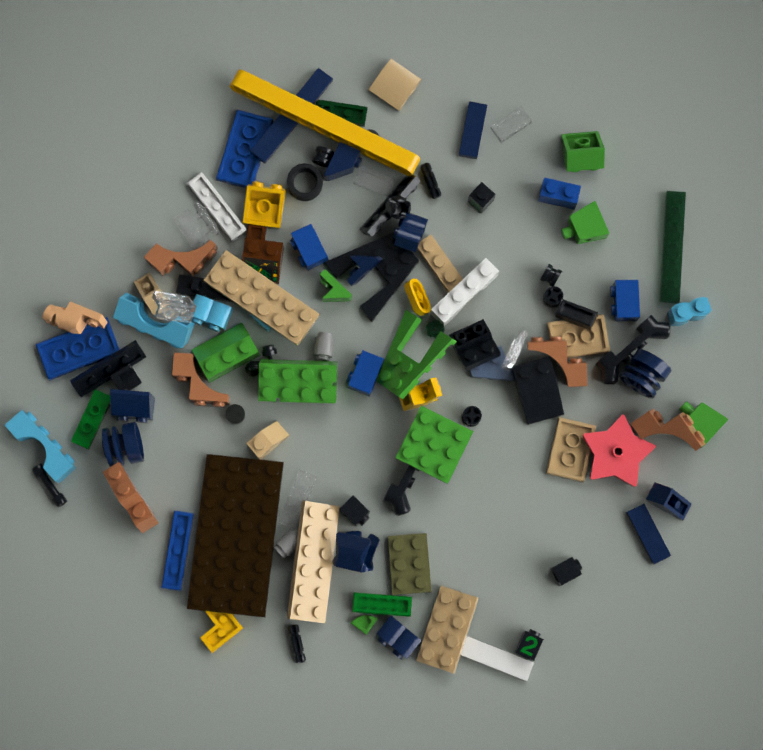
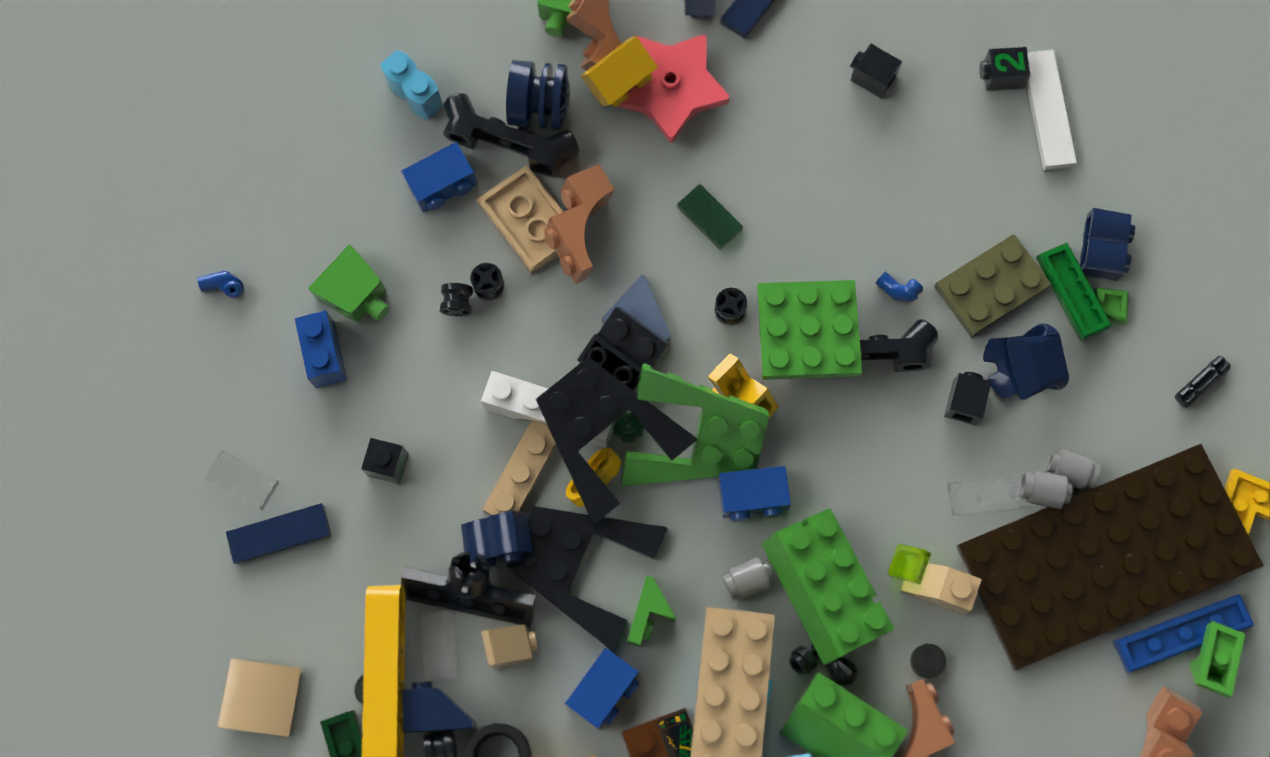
camera: 115 degrees left, 5 degrees down
(155, 554) = (1218, 659): none -> bright green slope
(285, 519) = (1045, 489): none -> light grey brick
(287, 431) = (909, 563): none -> clear neon green tile
(313, 562) = (1078, 417): tan plate -> none
(353, 211) = (509, 646): none -> tan slope
(366, 264) = (584, 580): dark blue slope -> none
(430, 180) = (394, 556): black axle -> none
(435, 509) = (899, 291): none -> blue arm
(447, 629) = (1051, 185): tan plate -> none
(452, 304) = (582, 408): none -> black wing
(514, 350) = (600, 290): clear tile -> none
(529, 434) = (709, 216): none -> clear green tile
(538, 390) = (638, 234): black slope -> none
(569, 450) = (701, 151): tan tile -> none
(576, 314) = (497, 233): black tile -> none
(583, 151) = (234, 349): bright green slope -> none
(626, 162) = (223, 281): none -> blue arm
(633, 421) = (620, 72): none -> yellow brick
(672, 247) = (322, 156): clear green plate -> none

